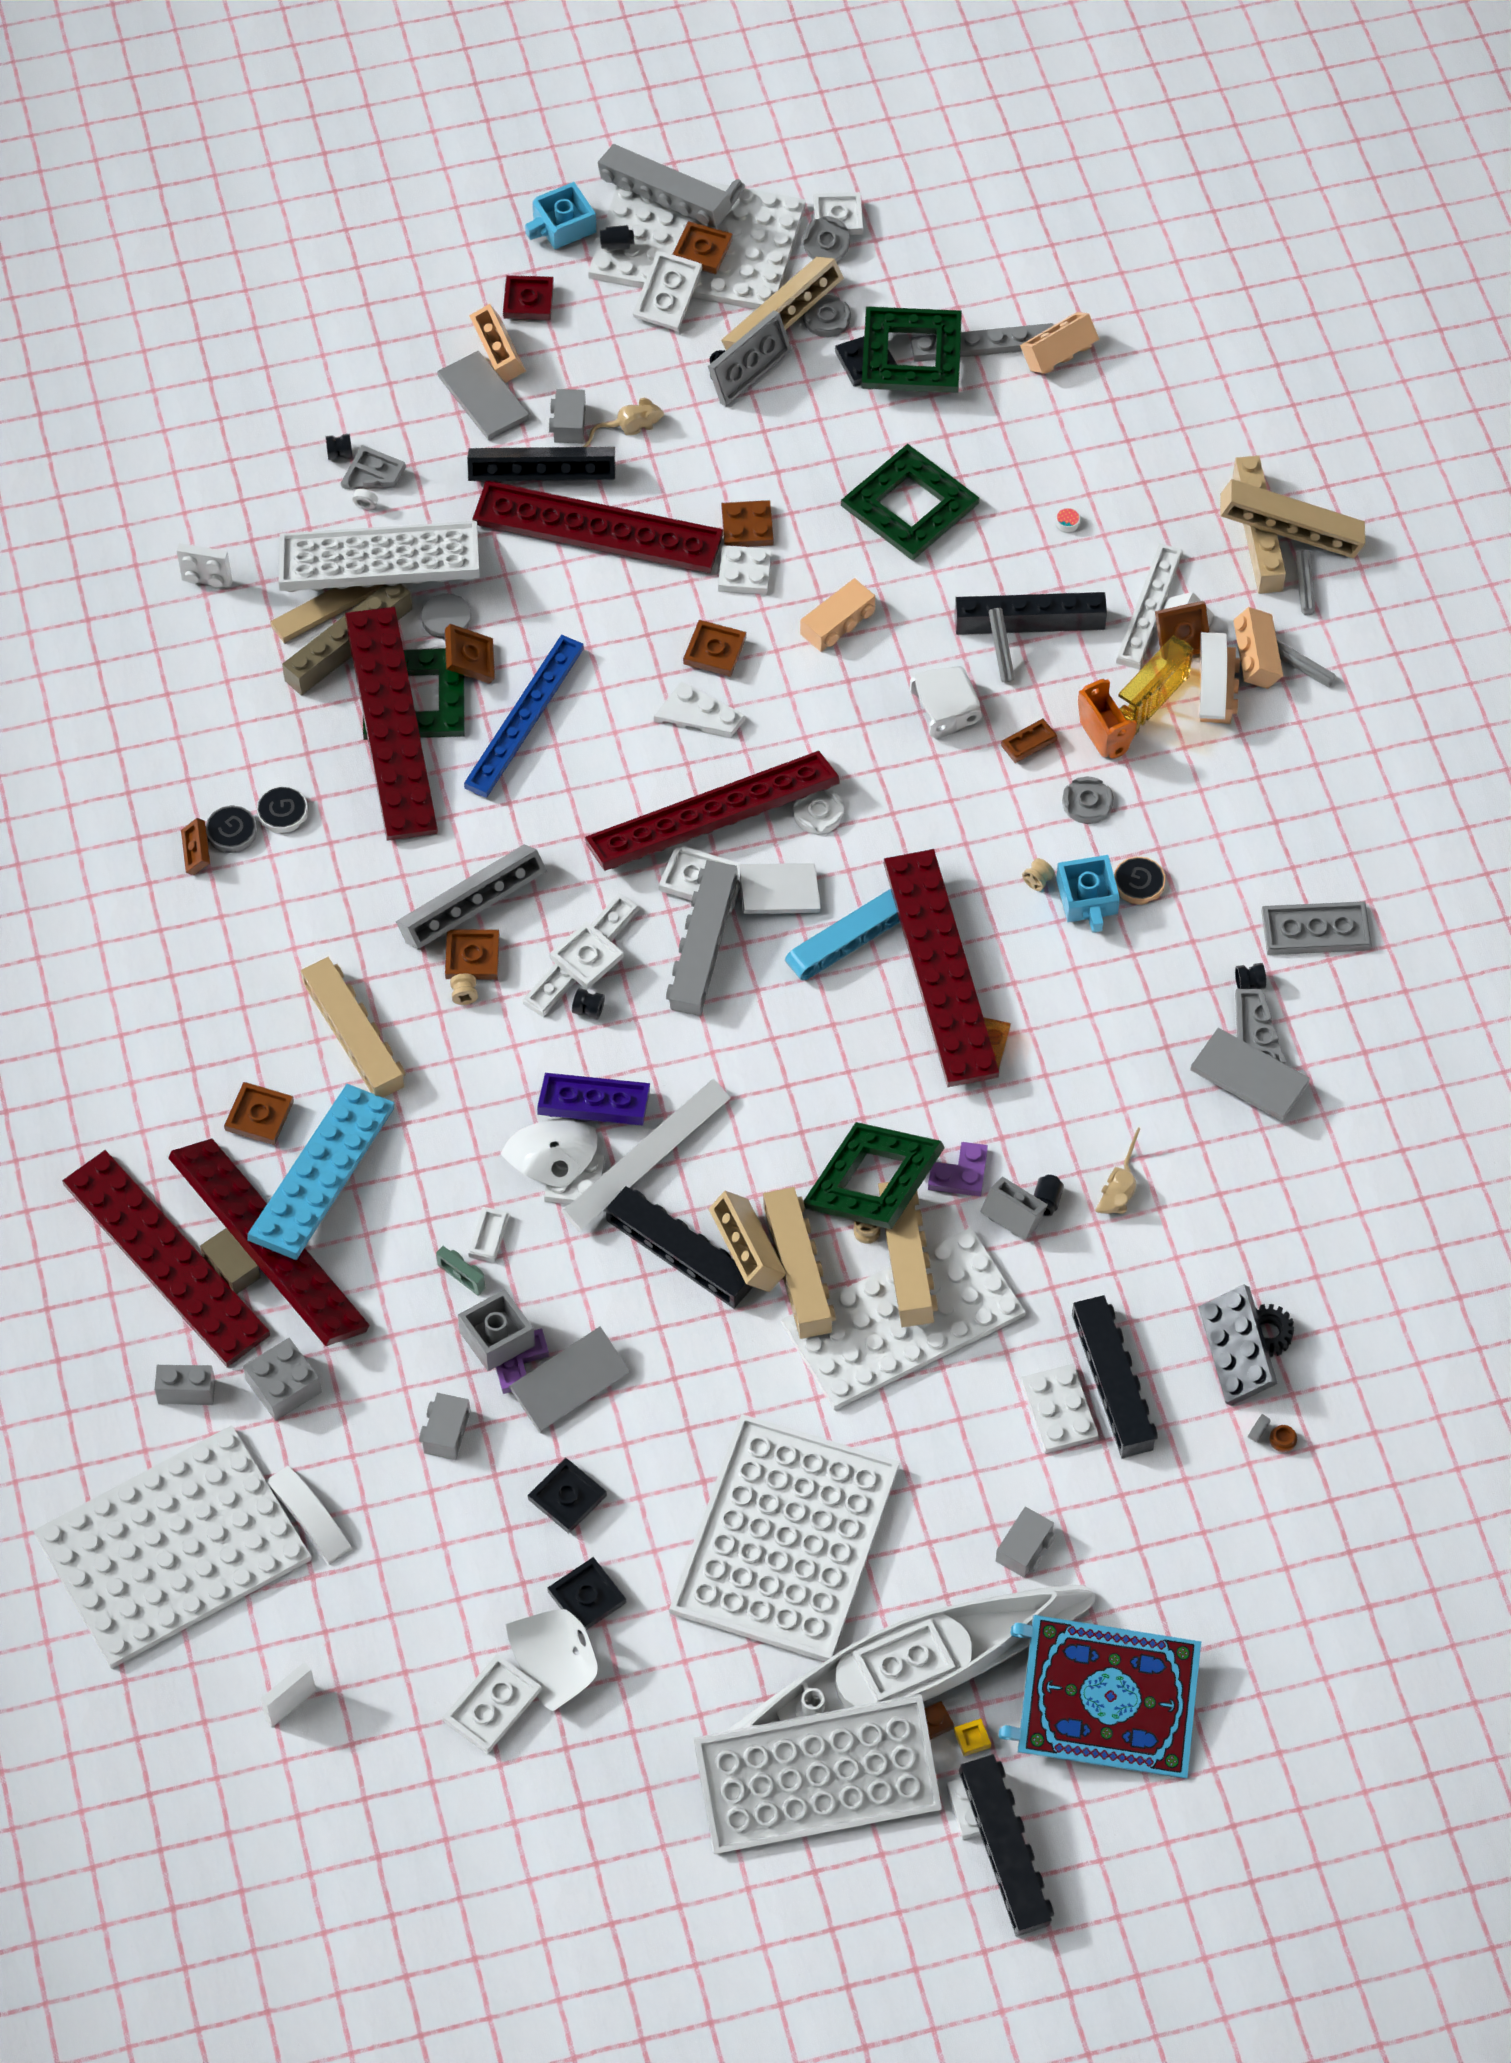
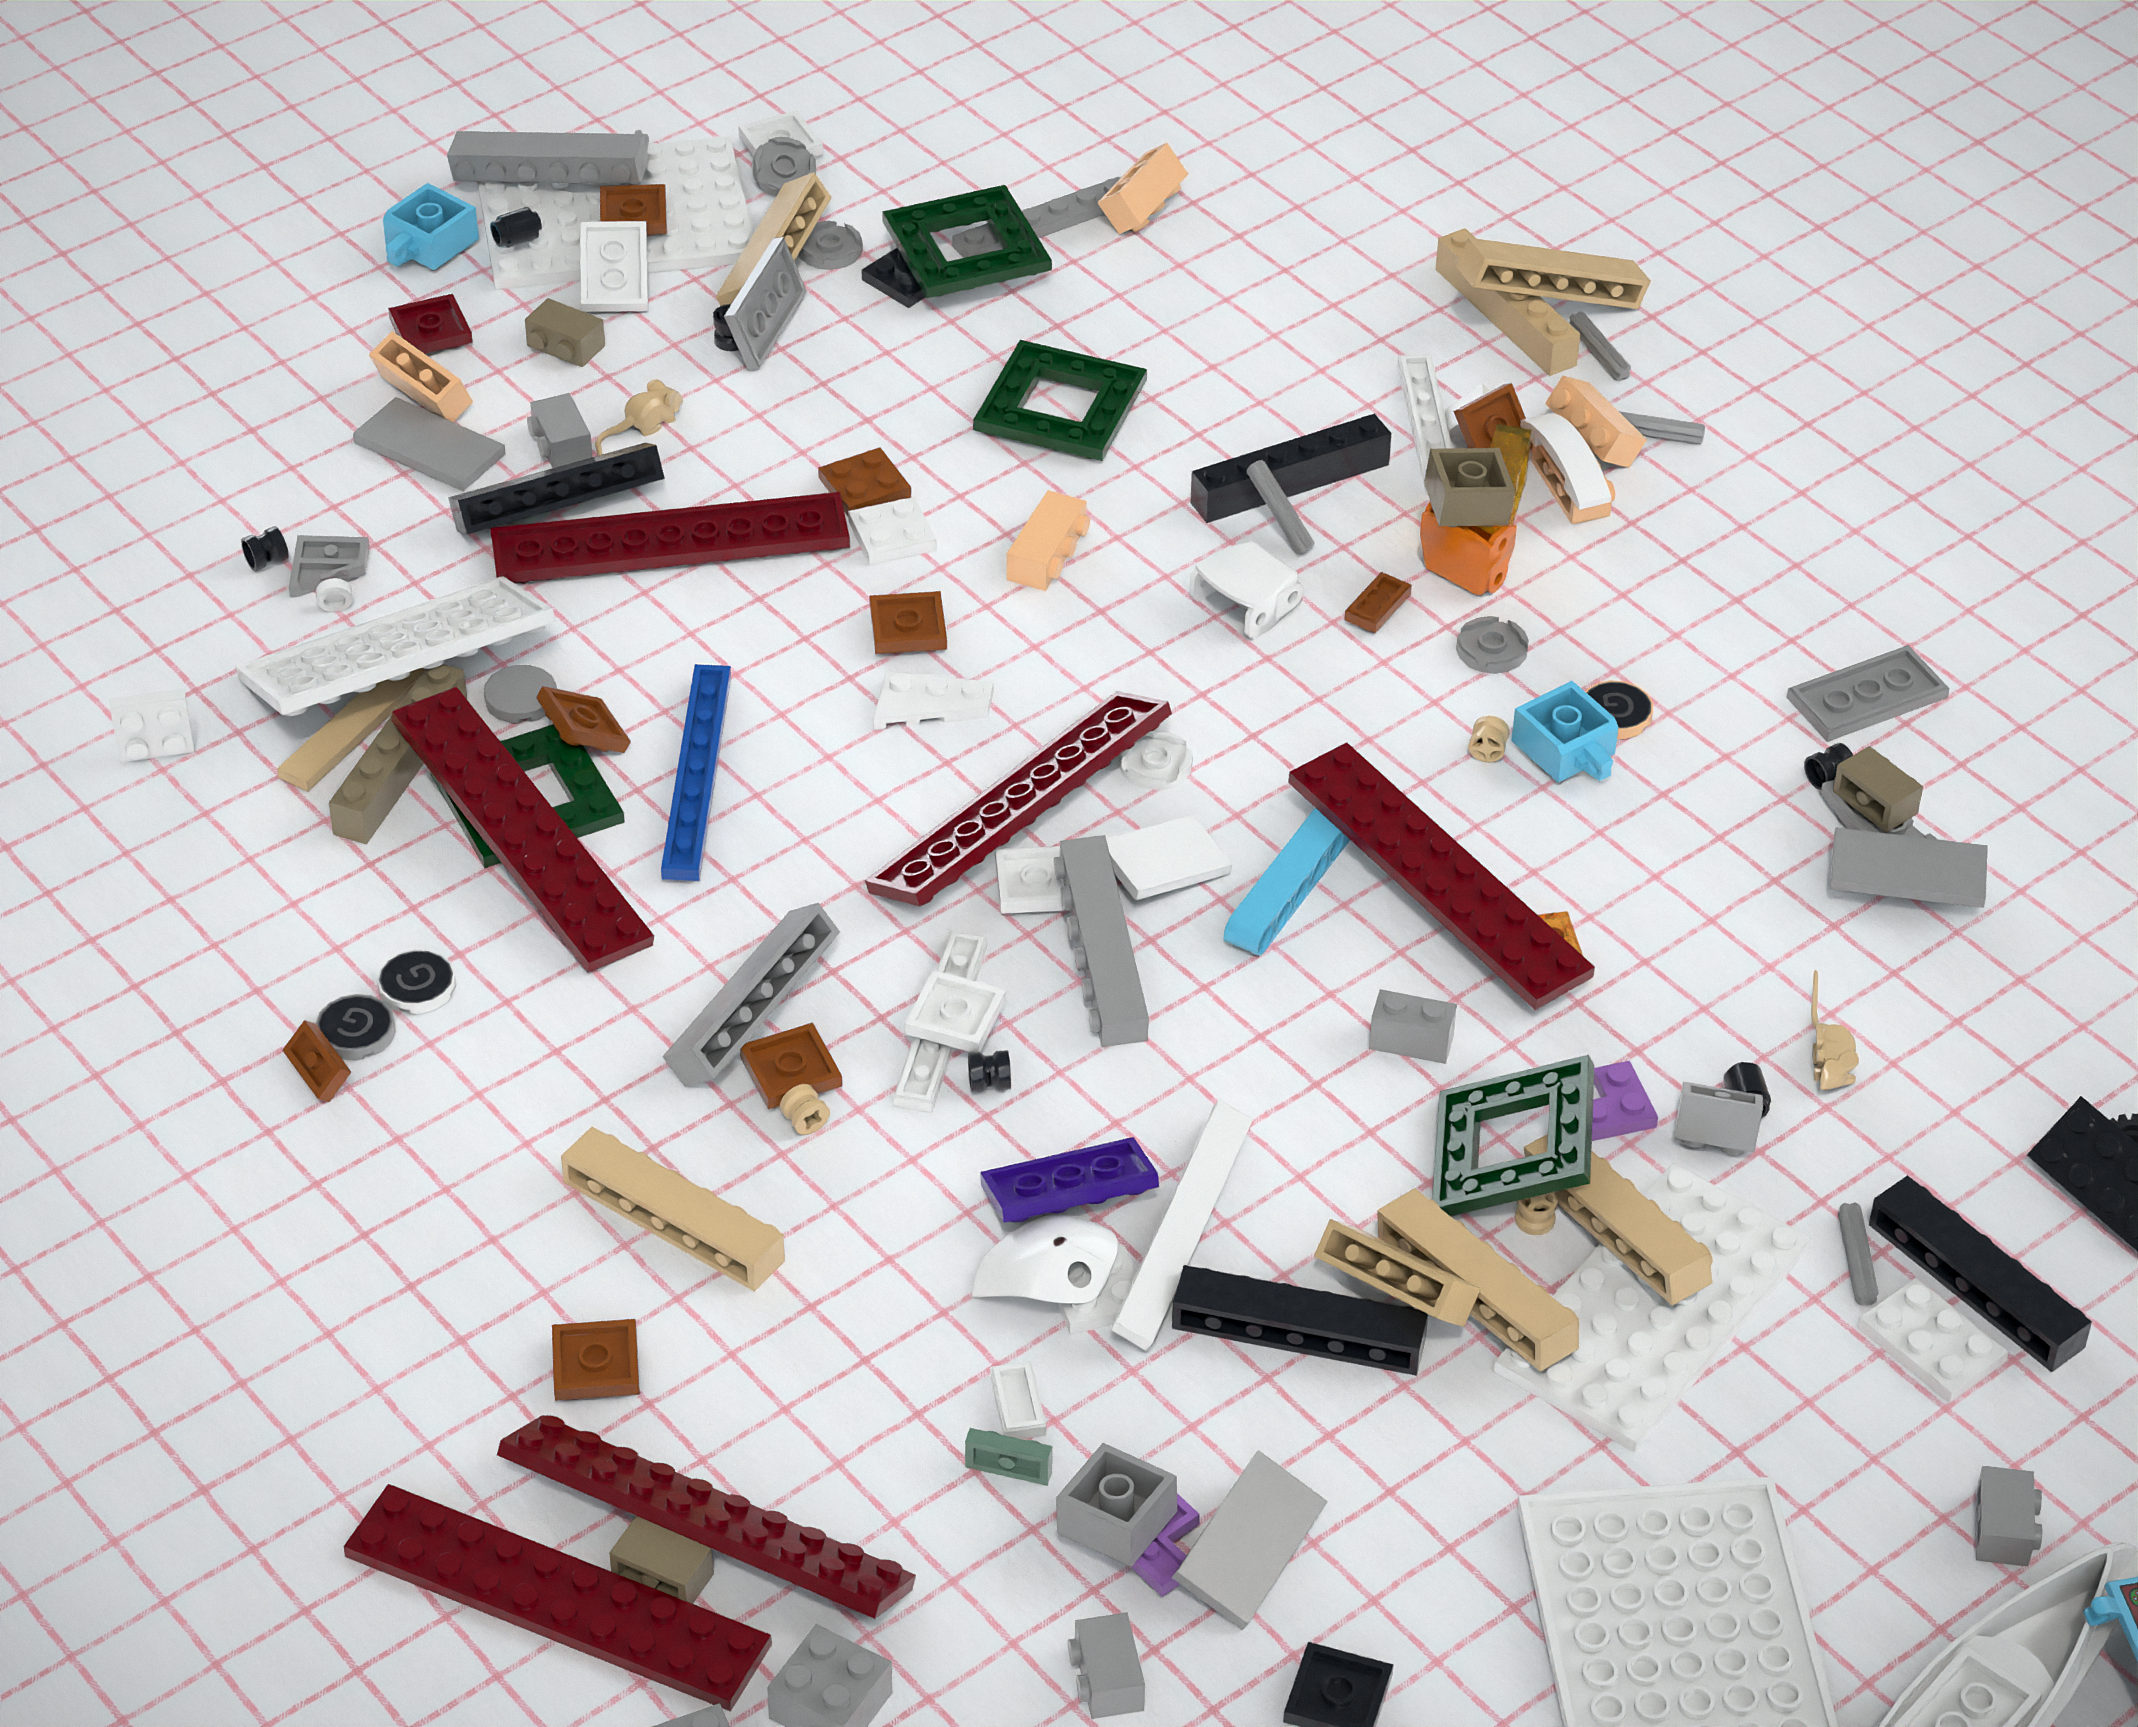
camera: 25 degrees left, 15 degrees down
(320, 1171) = (735, 1398): medium azure plate -> none
(611, 334) = (565, 332): none -> dark tan brick
(863, 1070) = (1412, 1026): none -> light grey brick
(1049, 1333) = (1858, 1253): none -> light grey axle
(1067, 519) = (1268, 365): tile -> none
(1111, 686) = (1469, 487): none -> dark tan brick
(1263, 1009) = (1878, 789): none -> dark tan brick

